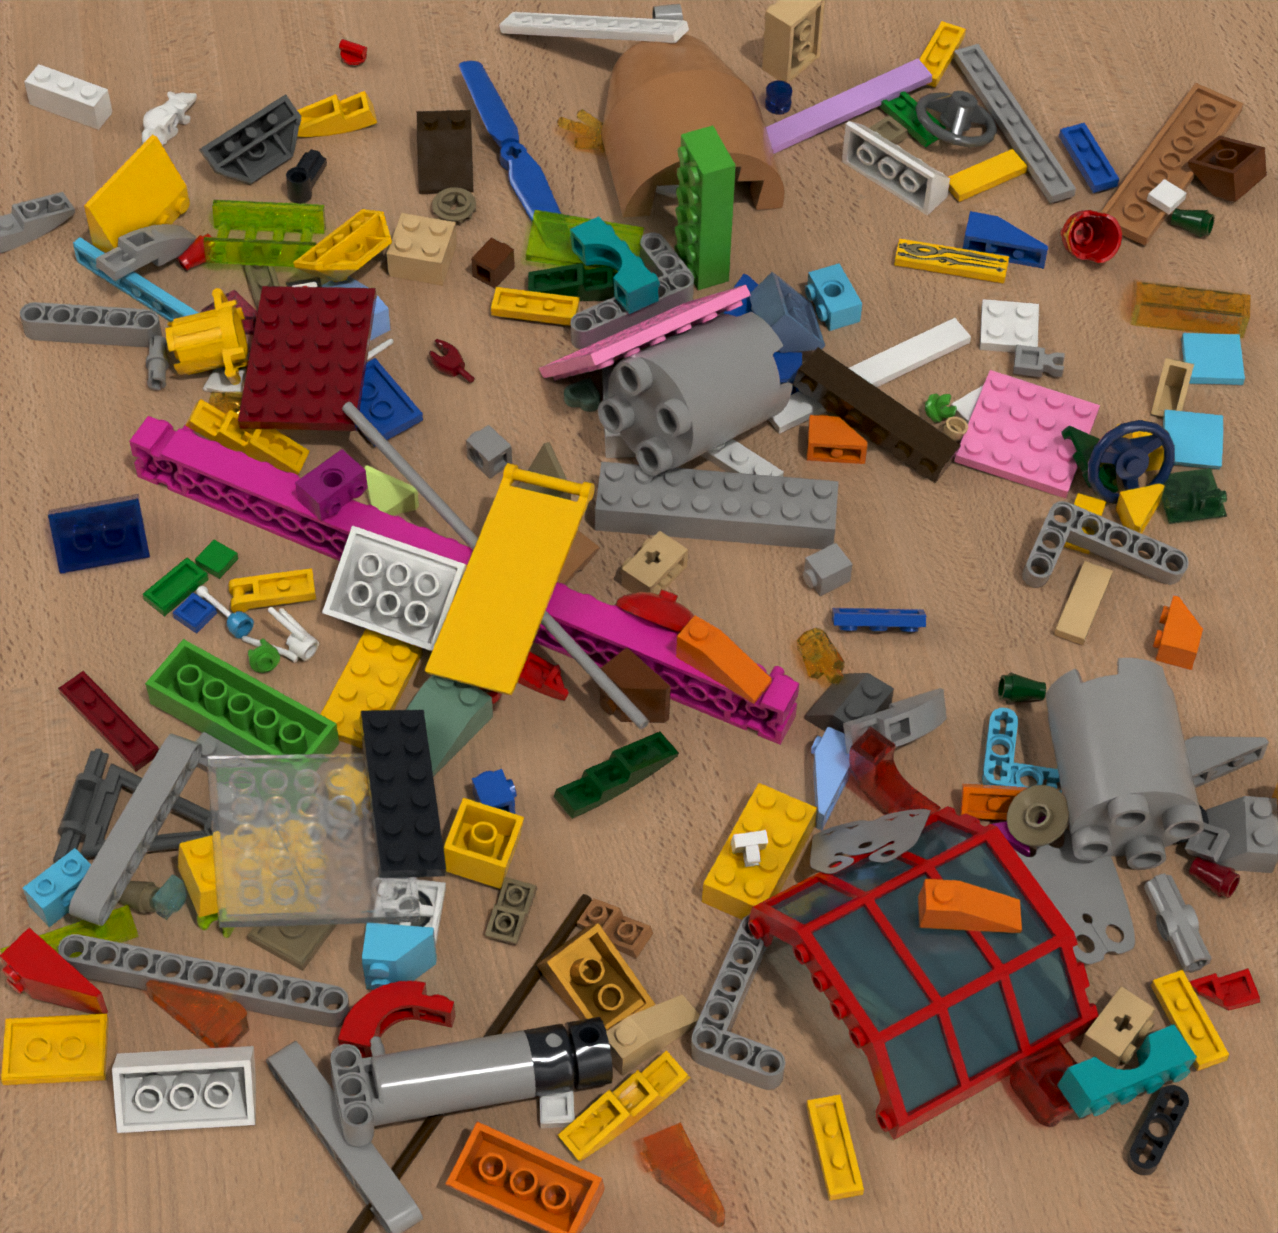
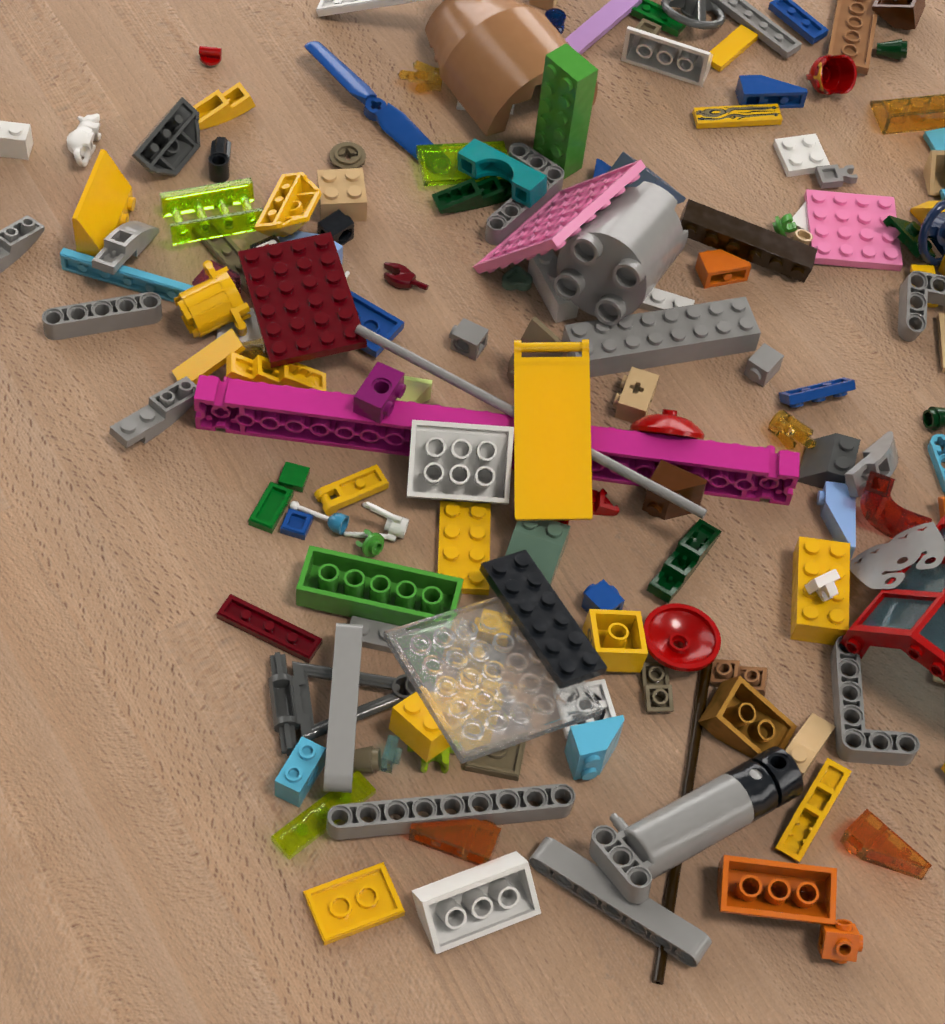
camera: 25 degrees left, 0 degrees up
(47, 976) = (332, 844): red slope -> none
(92, 454) = (159, 414): none -> light grey slope
(99, 533) = (191, 480): clear blue slope -> none
(157, 363) = (171, 333): light grey pin -> none
(182, 399) = (210, 357): none -> yellow tile
(194, 254) = (161, 239): red cone -> none
(391, 1005) = (605, 785): red arch -> none
(397, 287) = (339, 225): none -> black brick
(444, 150) = (321, 115): dark brown slope -> none
(493, 262) = (401, 193): reddish brown brick -> none
(534, 306) = (449, 219): yellow plate -> none
(557, 1110) = (765, 830): white tile -> none
(562, 847) = (685, 628): none -> red dish
(721, 659) = (737, 448): orange slope -> none
(833, 297) = (668, 161): medium azure brick -> none
(883, 368) = (733, 201): white tile -> none
(1166, 196) = (869, 35): white tile -> none

